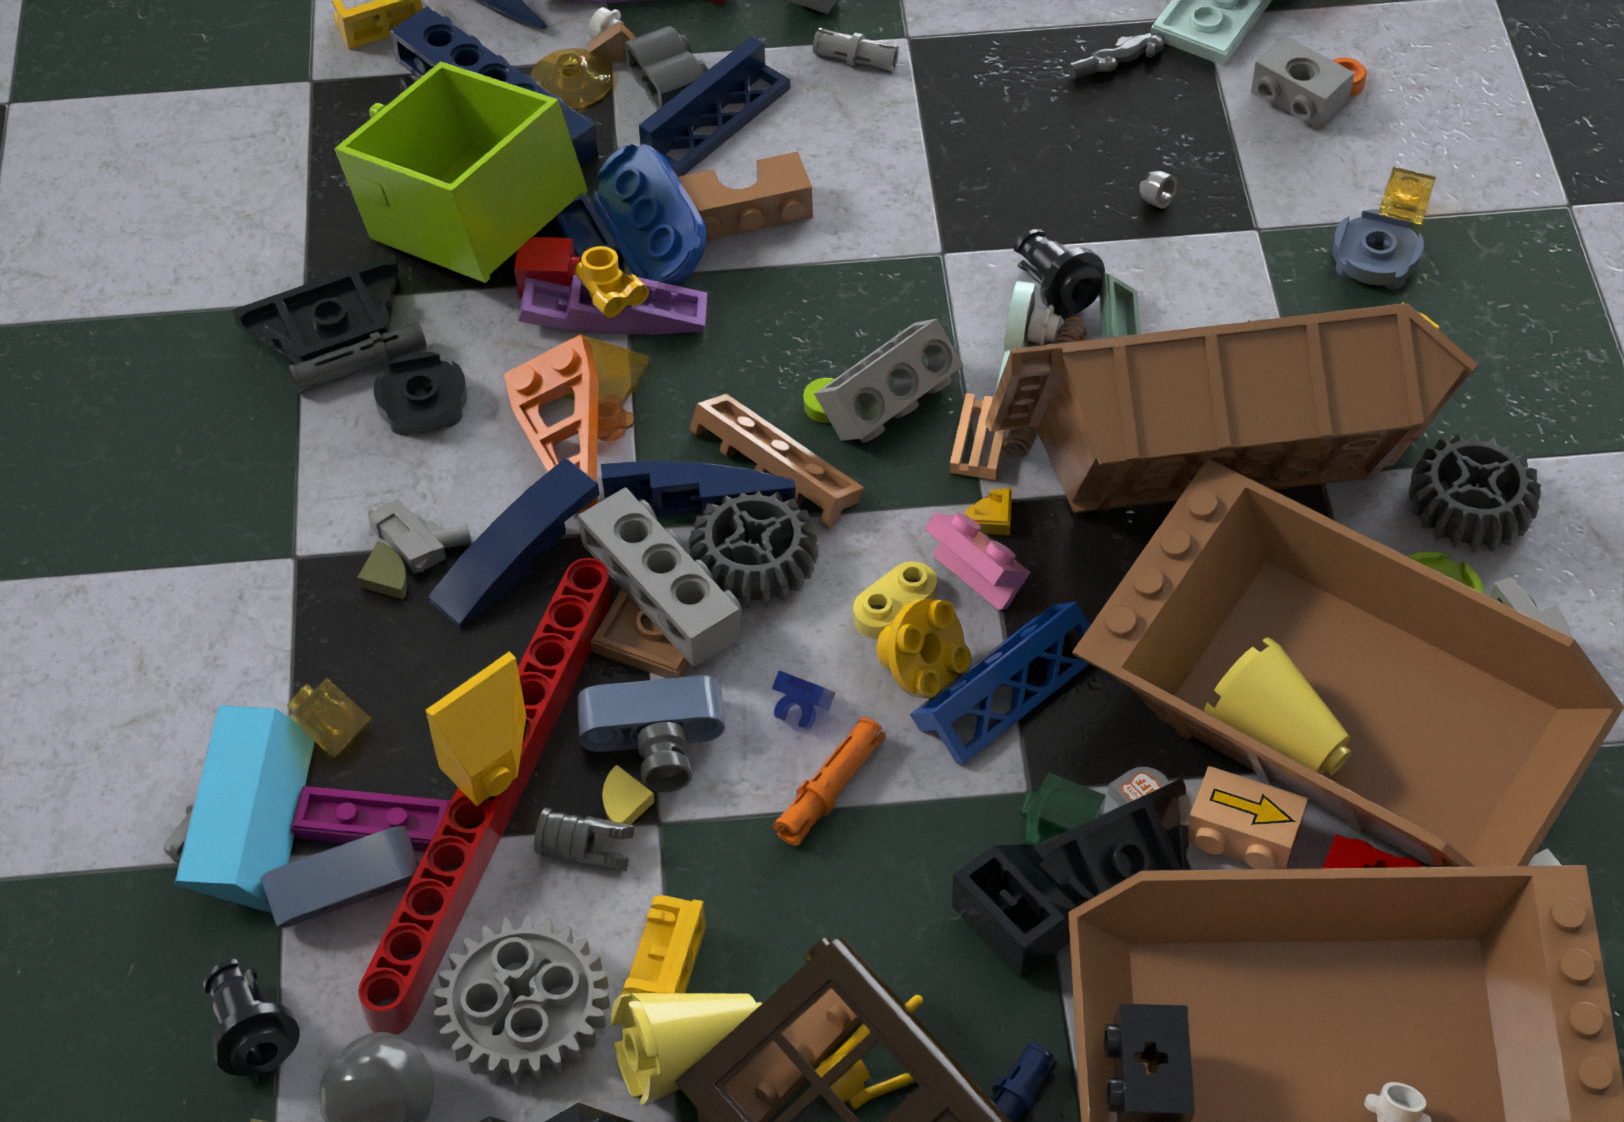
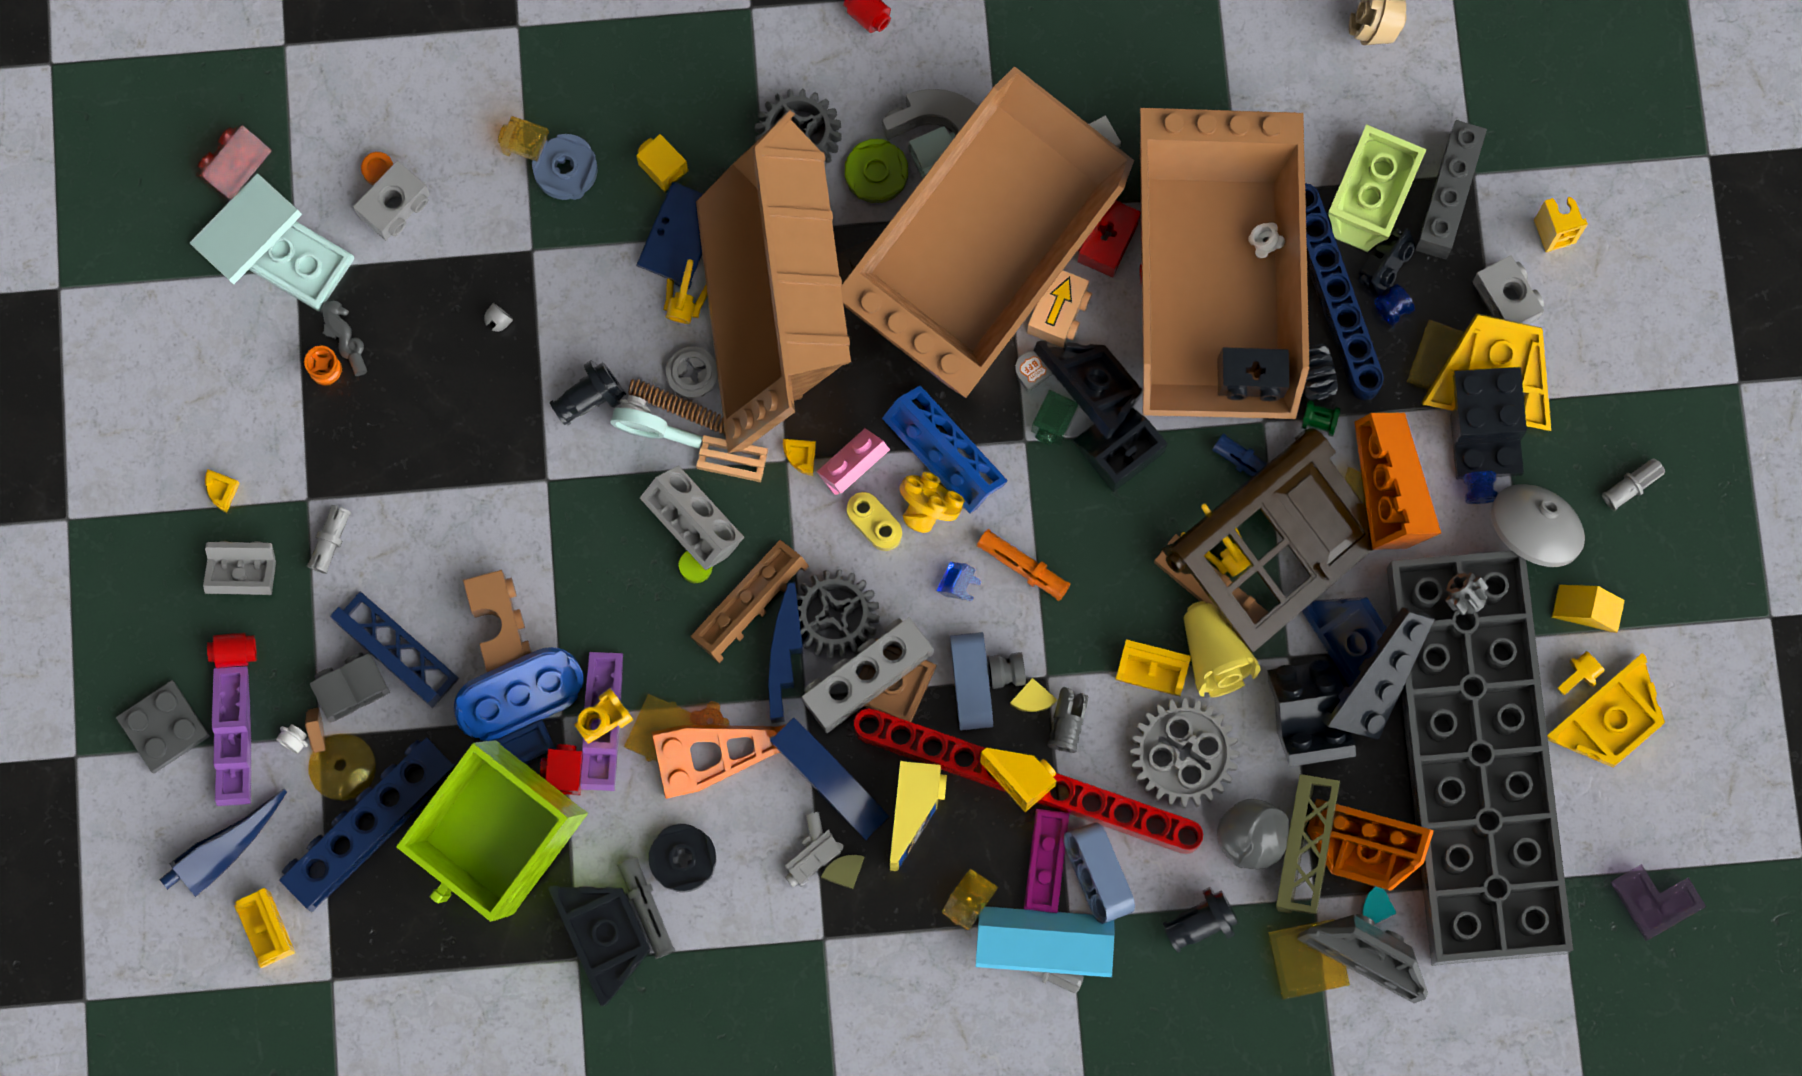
camera: 90 degrees left, 25 degrees up
(449, 621) = (916, 802): none -> light yellow slope
(1077, 30) = (319, 359): none -> orange wheel
(1118, 308) = (628, 354): sand green tile -> none
(1278, 707) = (1000, 275): light yellow cone -> none

